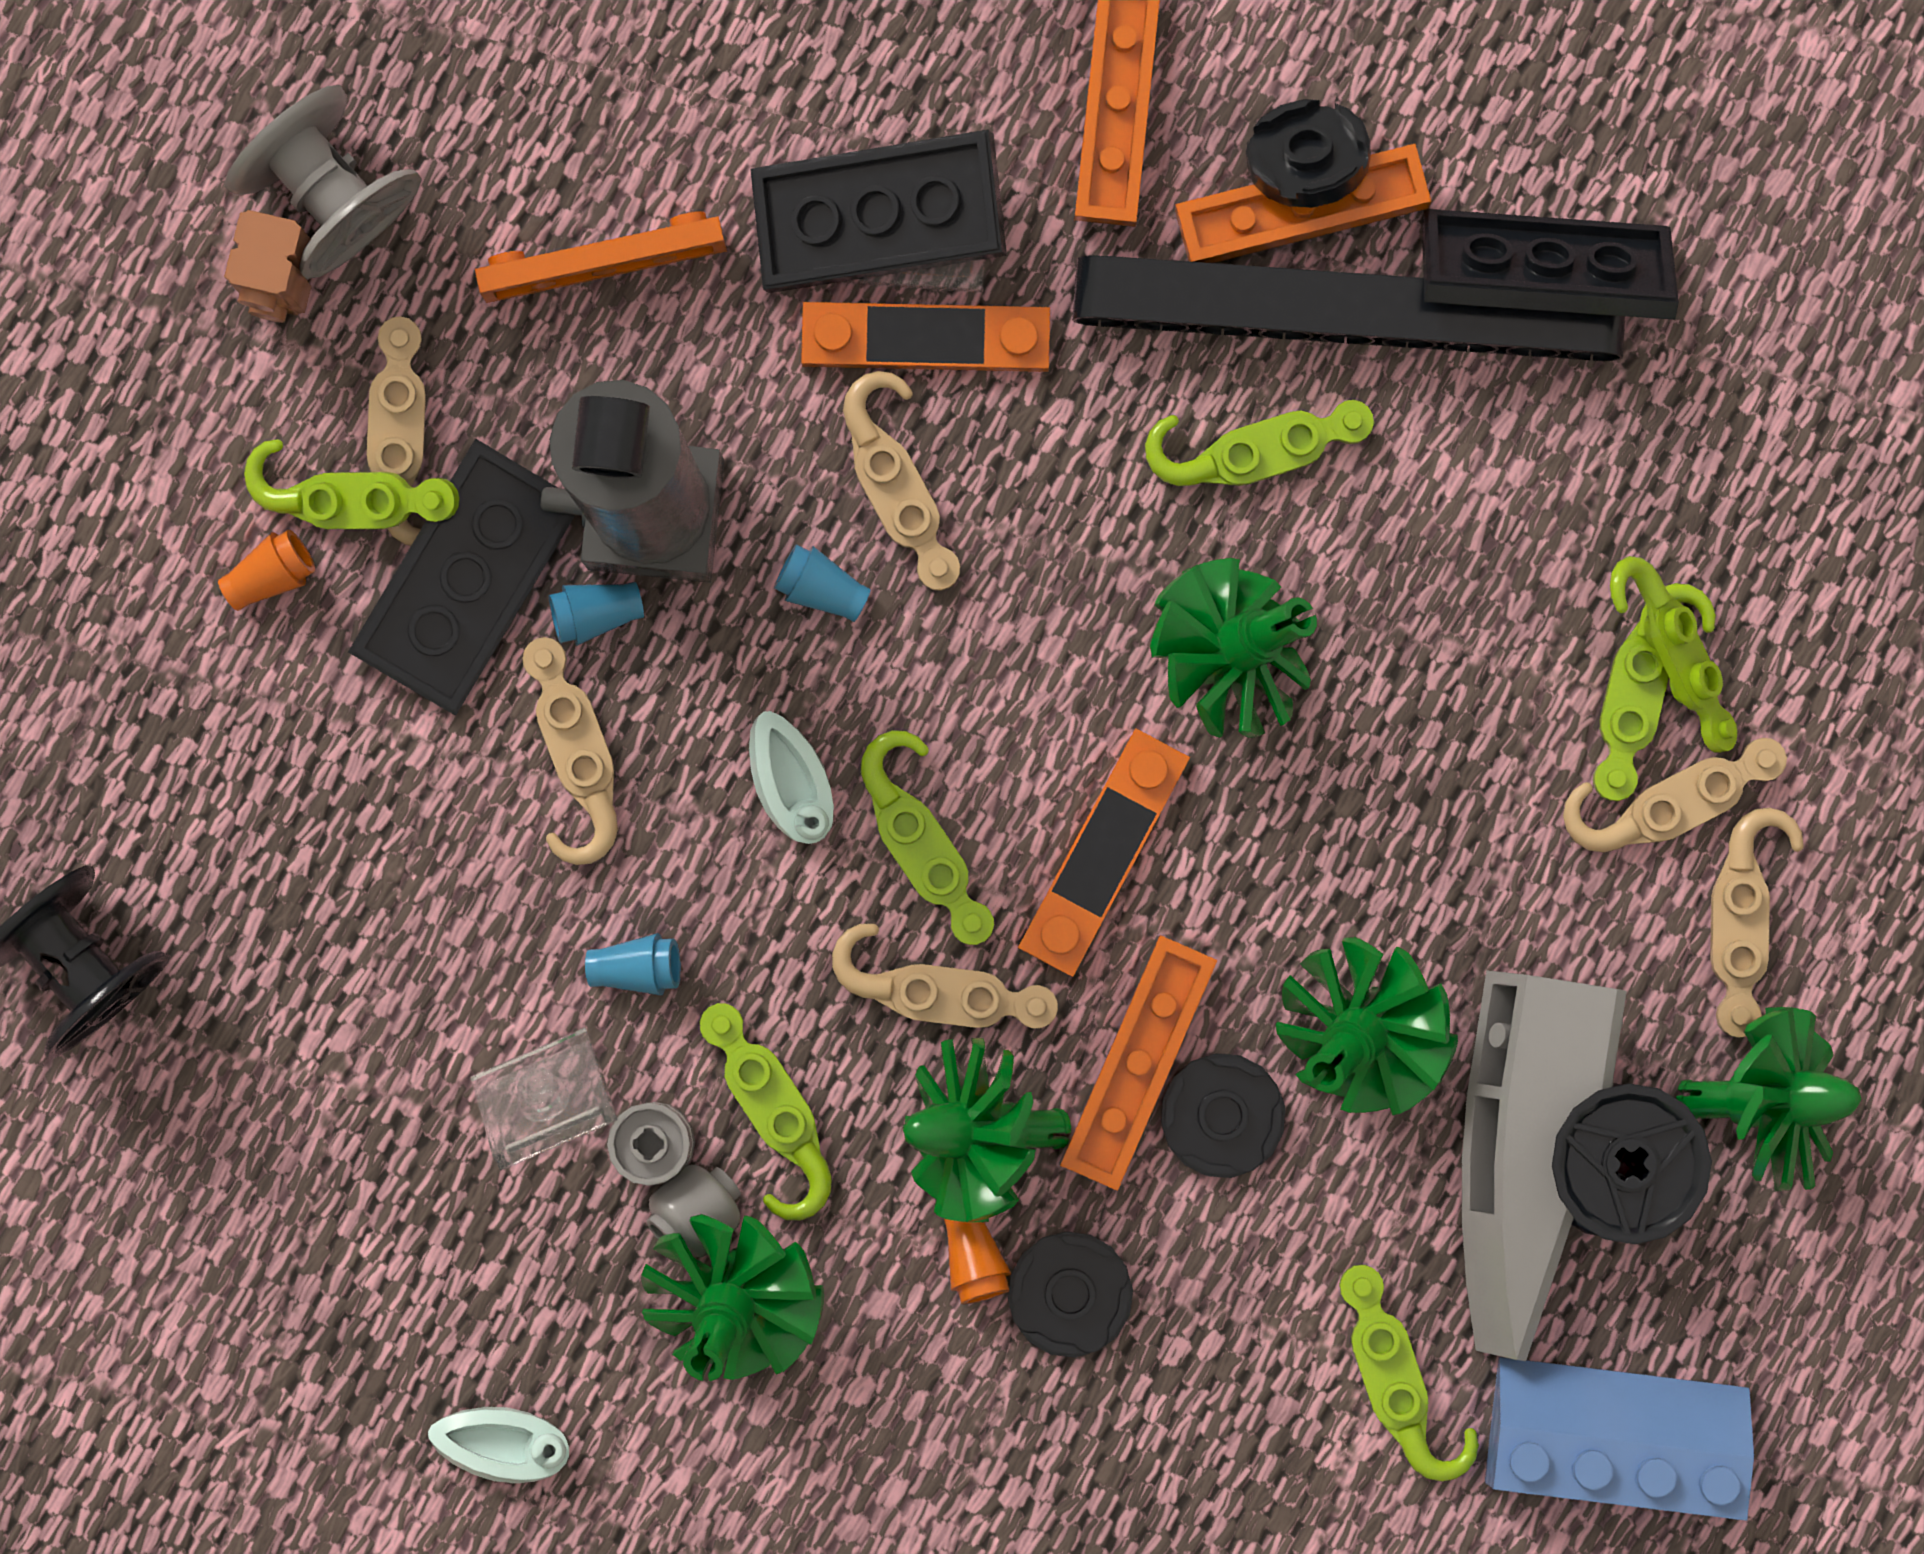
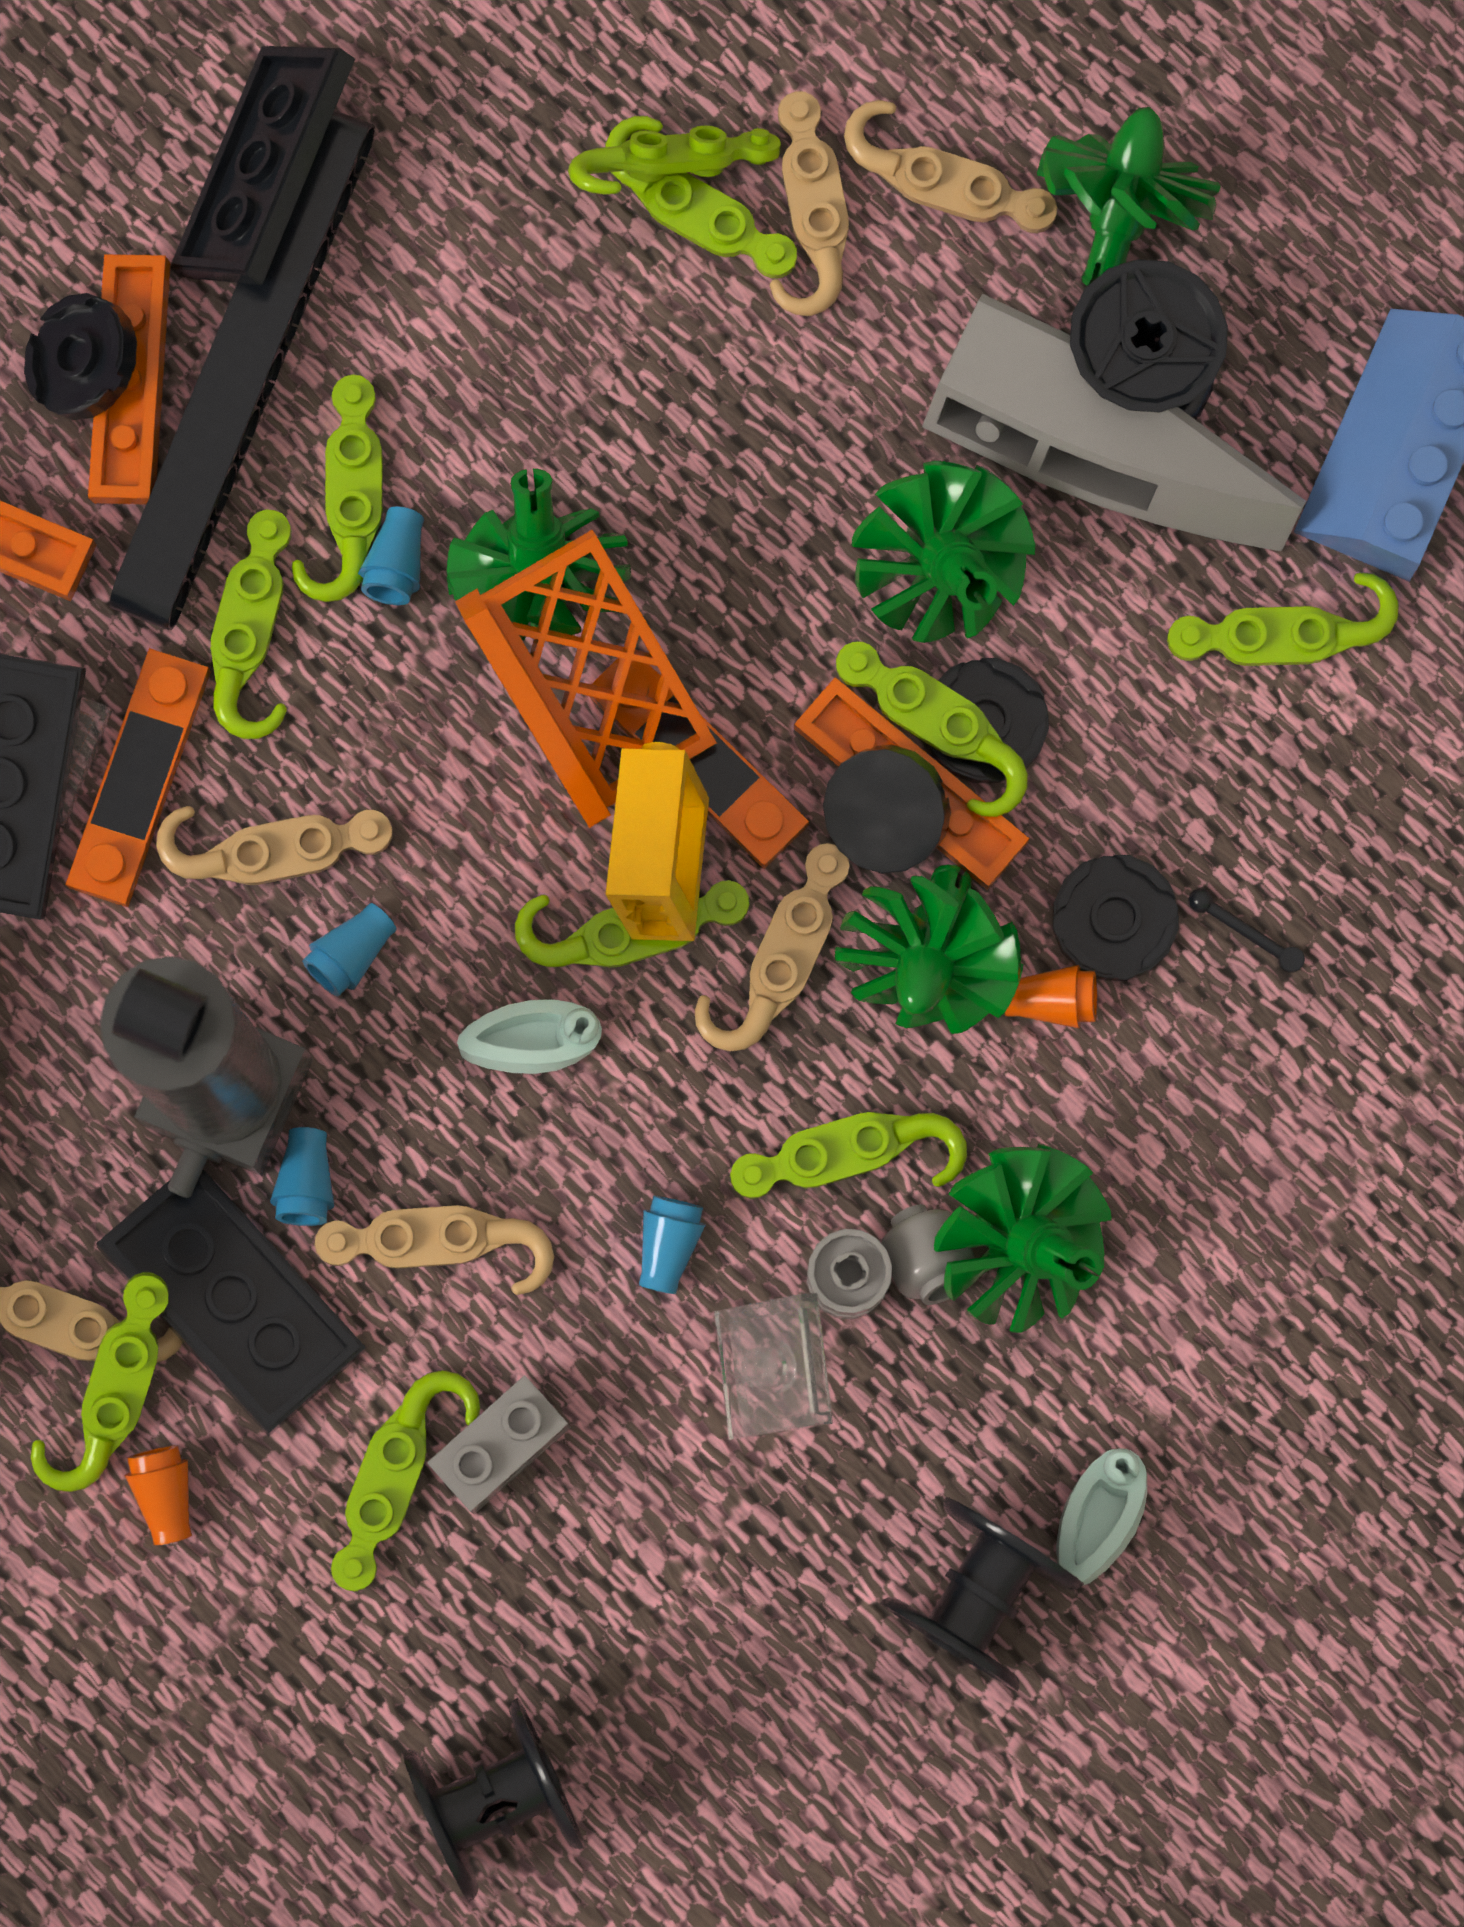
camera: 75 degrees left, 5 degrees down
(345, 775) = (391, 1475): none -> lime piece
(384, 1354) = (982, 1592): none -> black piece
(398, 866) = (499, 1445): none -> light grey brick
(997, 841) = (657, 843): none -> yellow window
(1081, 1471) = (1289, 959): none -> black hinge
(1102, 1047) = (886, 809): none -> black tile
(1103, 391) = (247, 623): none -> lime piece
(1105, 680) = (532, 690): none -> orange fence
(1206, 509) = (394, 559): none -> dark azure cone
(1206, 1069) = (937, 718): none -> lime piece

